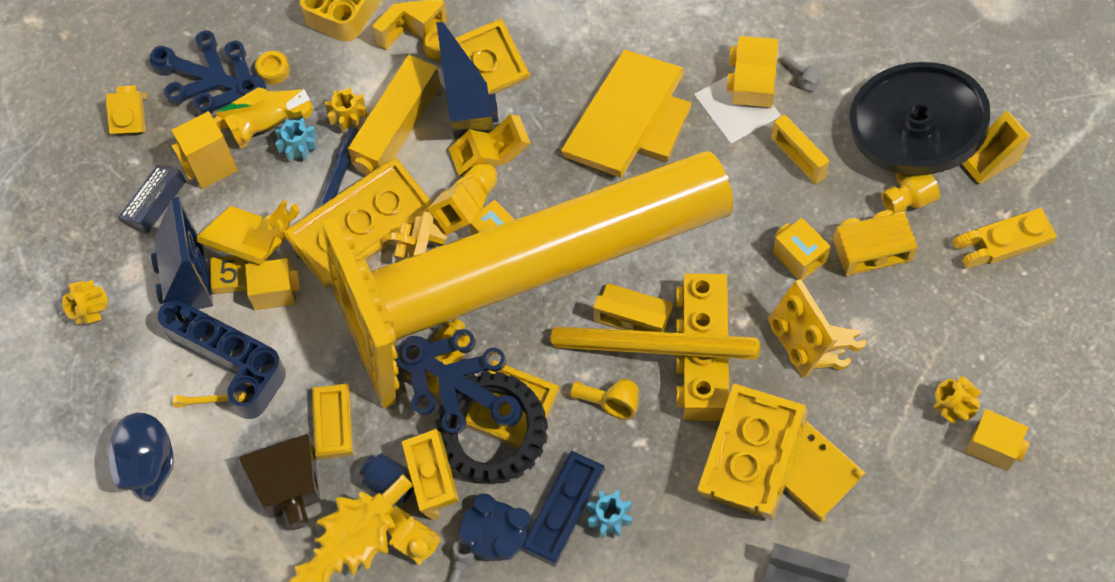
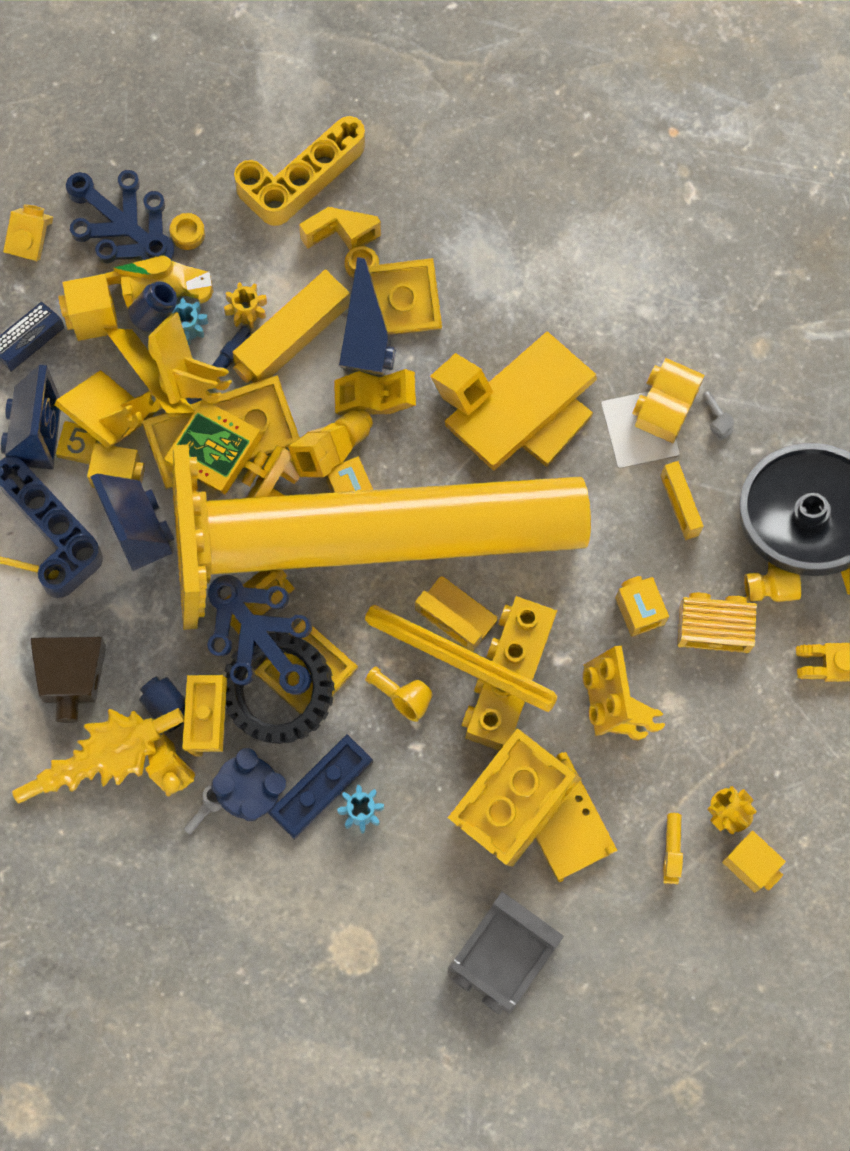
camera: 10 degrees right, 10 degrees up
(262, 130) = (152, 306): none -> dark blue brick
(277, 188) = (145, 367): none -> yellow sticker
(302, 320) = (134, 519): none -> dark blue slope
(306, 180) = (179, 372): none -> yellow plate
(332, 421) = (131, 627): yellow tile -> none
(370, 225) = (219, 443): none -> tile
(566, 112) = (462, 384): none -> yellow brick
(922, 462) = (673, 858): none -> yellow bar

